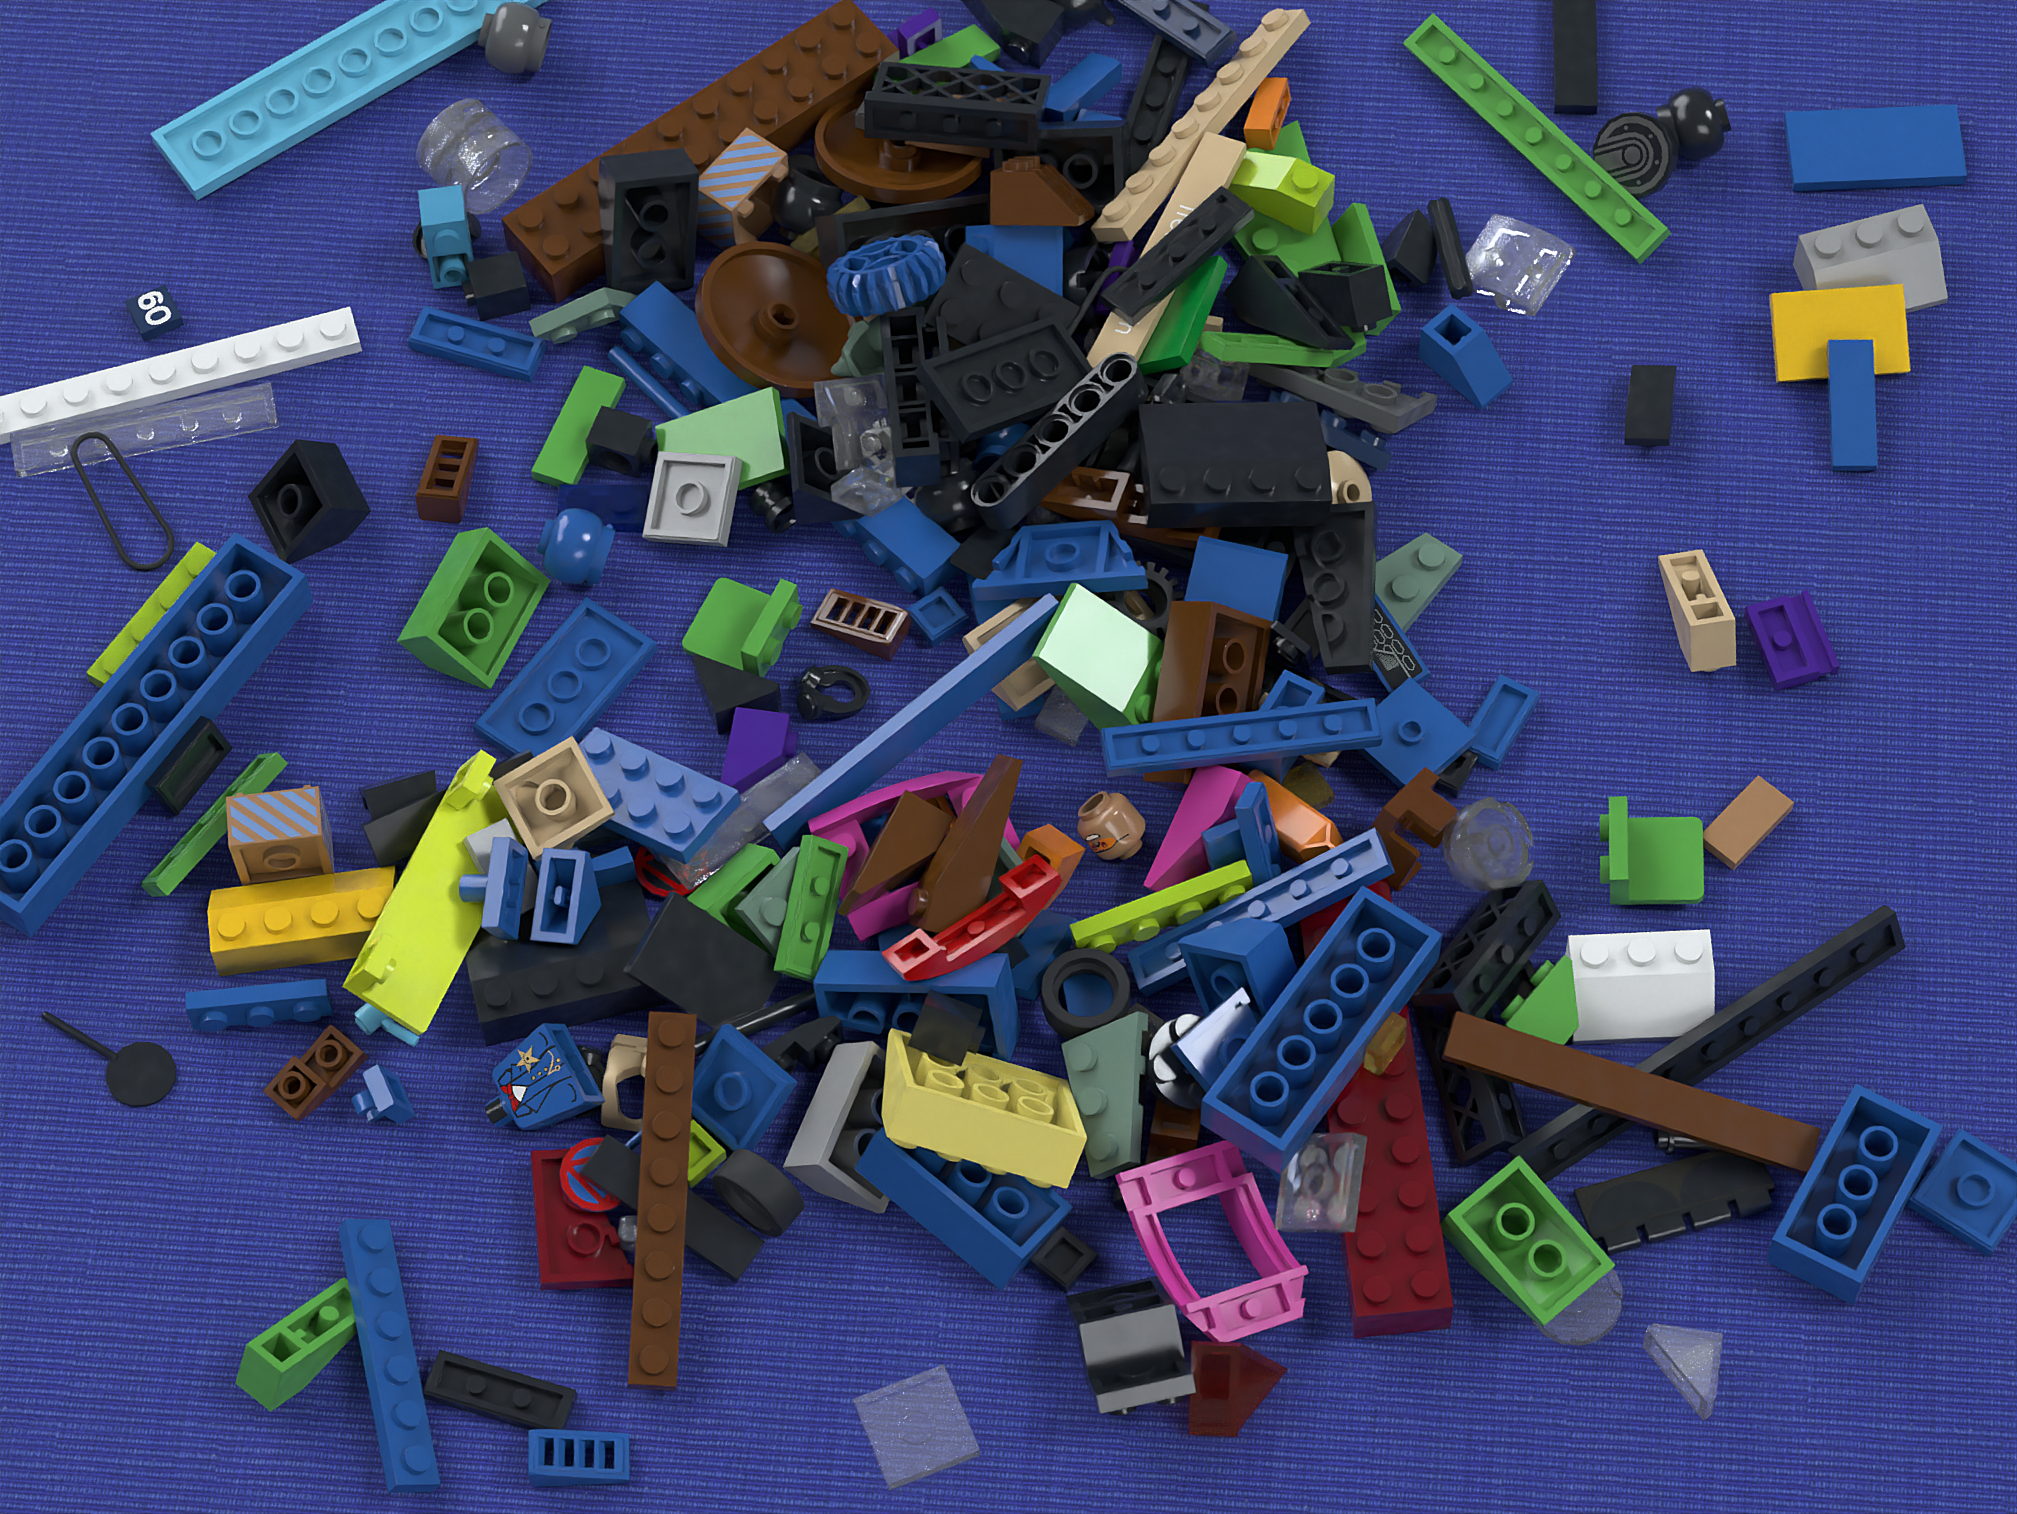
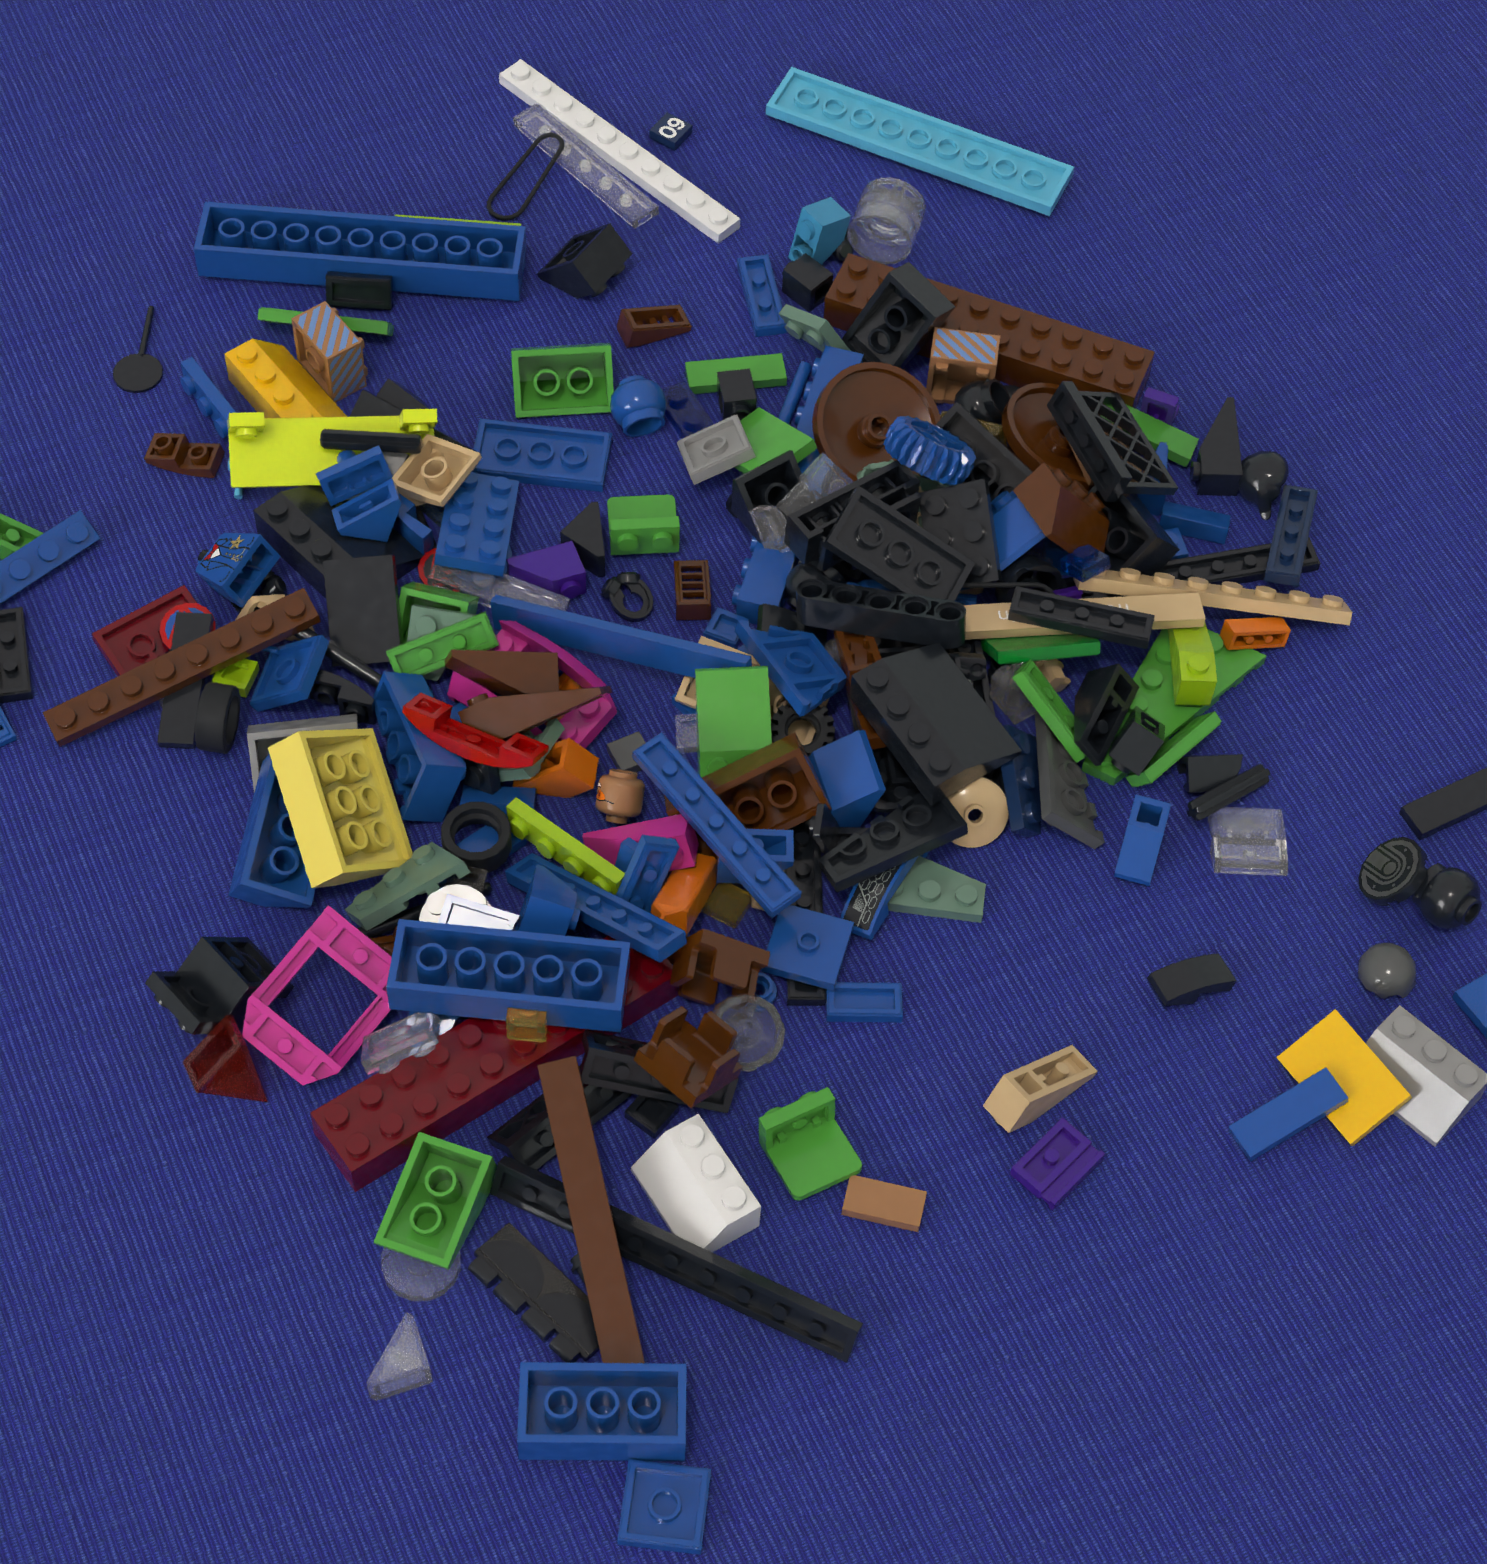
camera: 55 degrees right, 5 degrees down
(383, 1097) = (185, 494): blue tile -> none
(470, 846) = (366, 440): none -> black axle
(515, 38) = (993, 204): dark grey piece -> none
(916, 1427) = (104, 895): clear tile -> none
(947, 1028) = (386, 756): black brick -> none
(1050, 793) = (621, 751): none -> dark grey tile
(1063, 1259) = (276, 924): black tile -> none
(1110, 213) = (1085, 563): none -> clear blue plate
(1508, 906) = (690, 1059): none -> reddish brown panel
(1537, 138) = (1362, 809): bright green plate -> none
(1550, 1007) = (629, 1132): bright green slope -> none
(1735, 228) = (1387, 970): none -> dark grey hair

